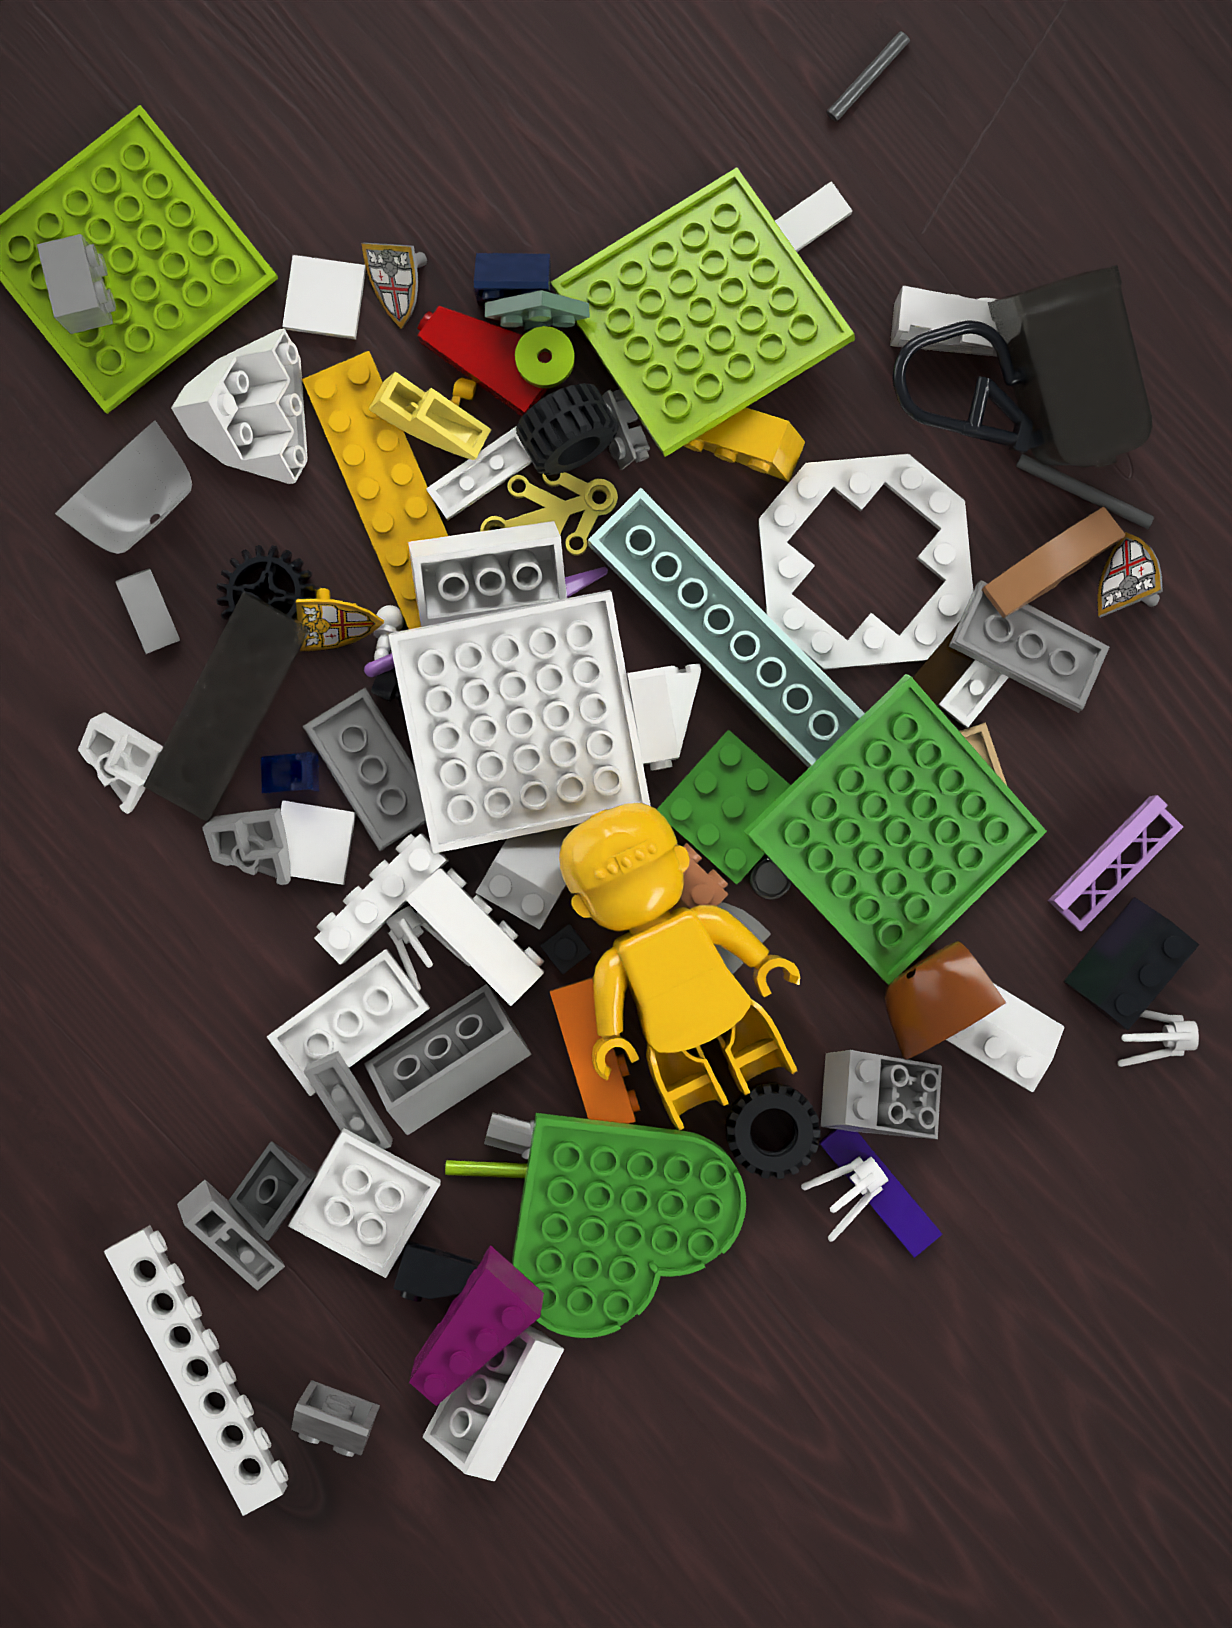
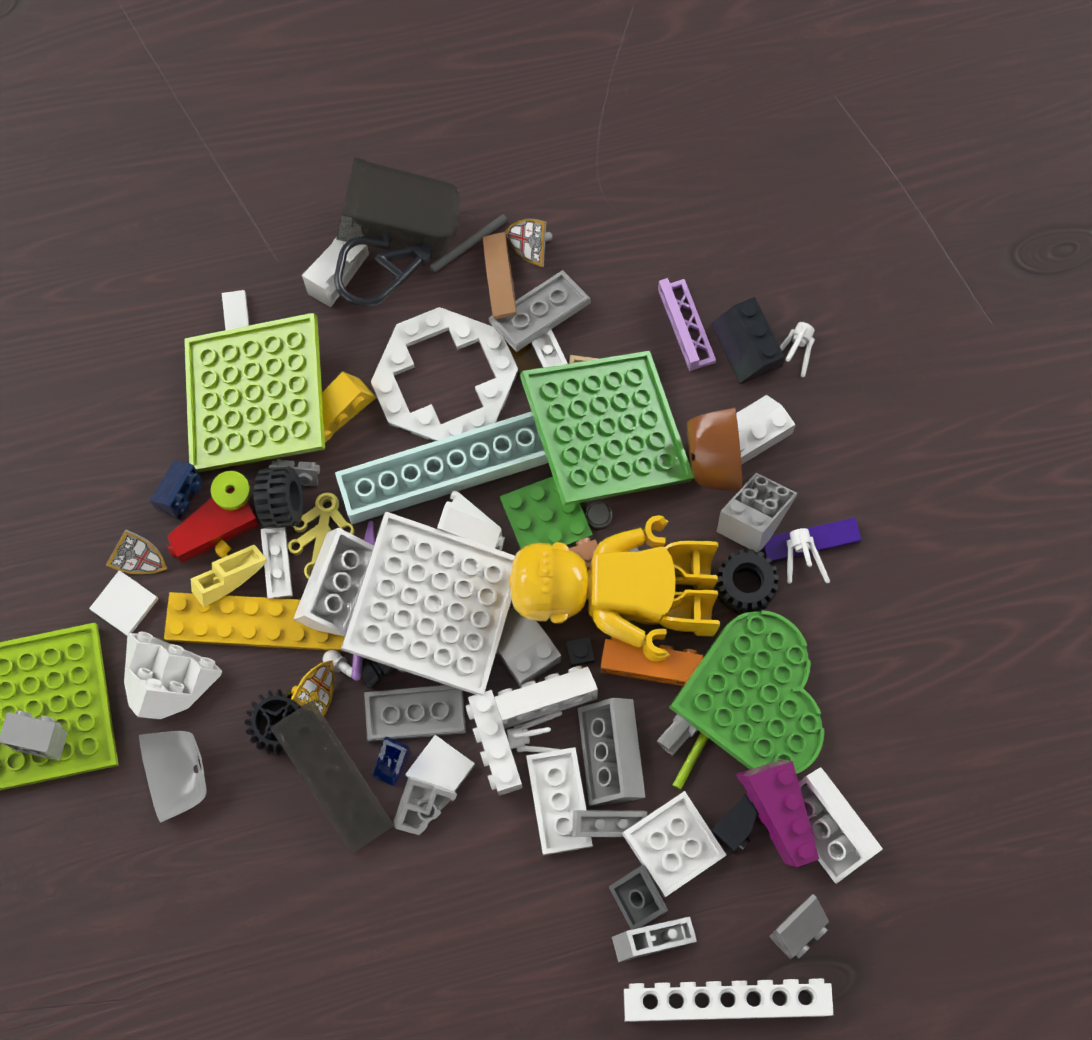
camera: 60 degrees left, 15 degrees down
(119, 756) = (328, 860): white slope -> none
(147, 610) = (248, 798): light grey slope -> none
(537, 310) = (201, 479): sand green plate -> none
(868, 76) = (175, 247): dark grey bar -> none

